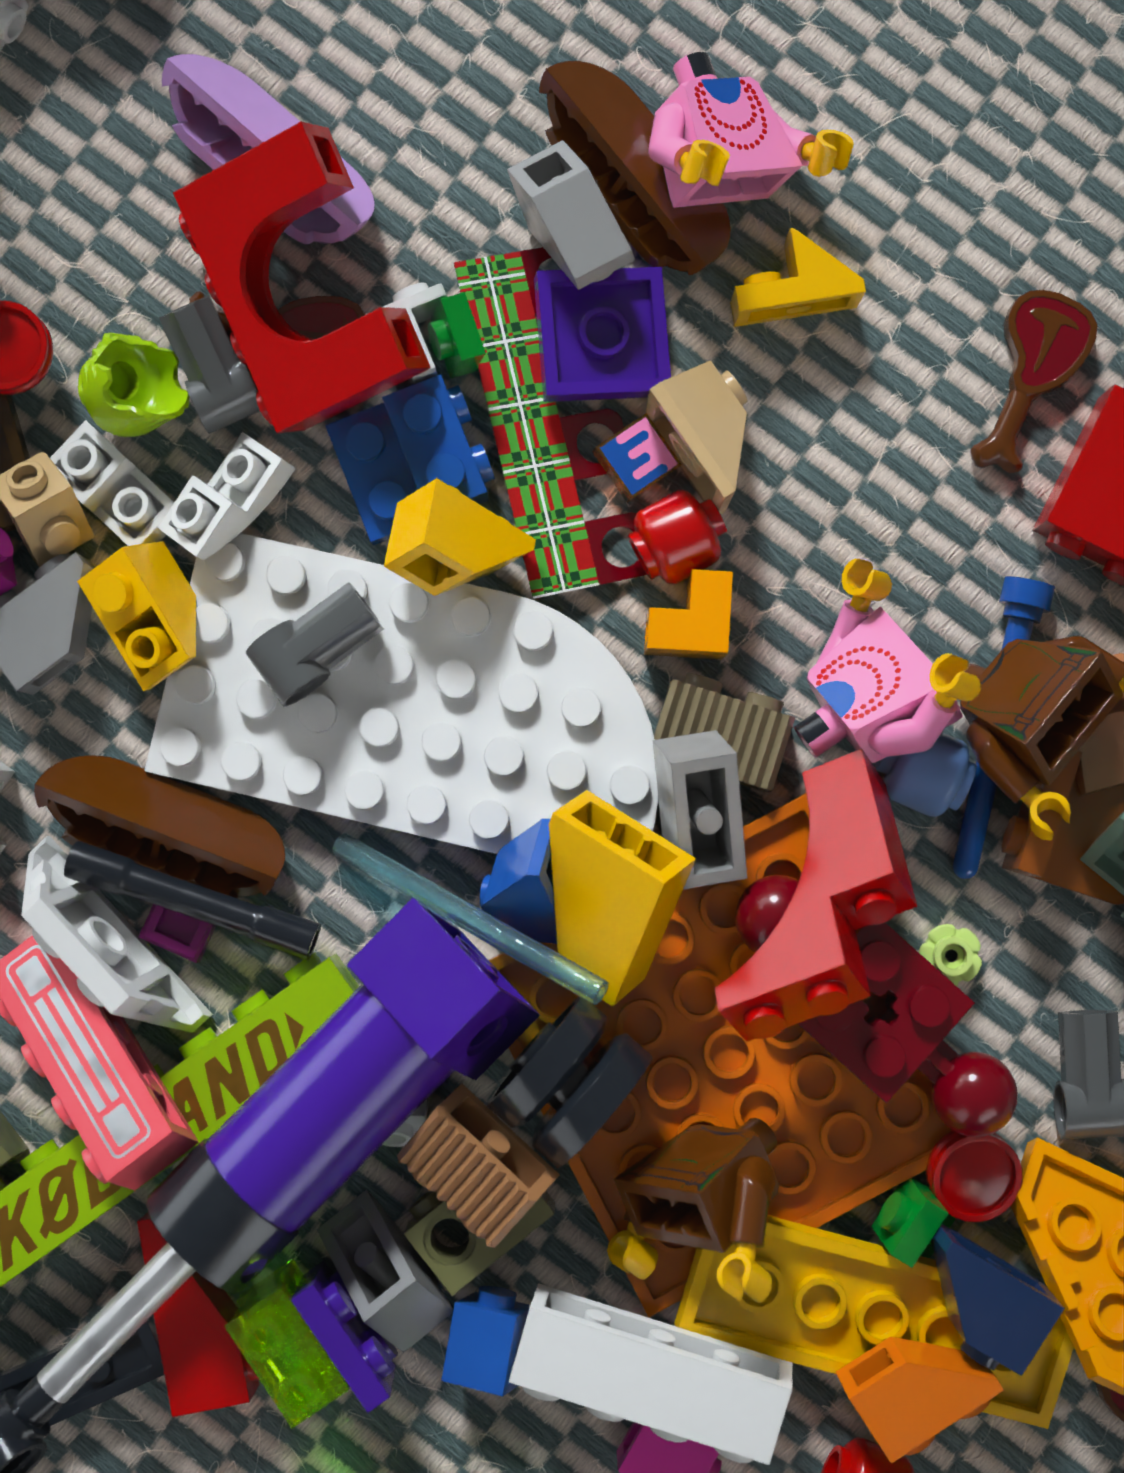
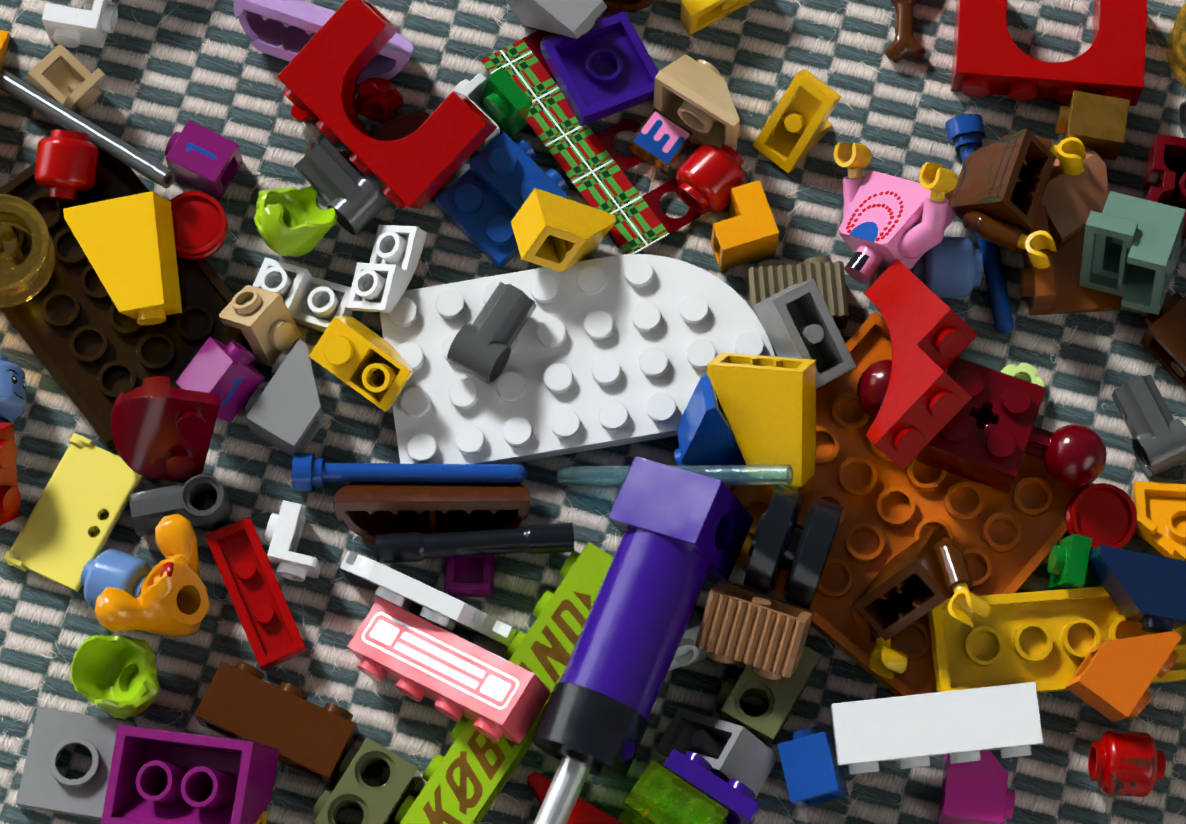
camera: 25 degrees left, 15 degrees down
(33, 723) = (314, 472): none -> blue piece
(55, 260) = (203, 159): none -> magenta brick
(302, 265) = (377, 99): none -> red plate
(818, 503) = (797, 121): none -> yellow slope

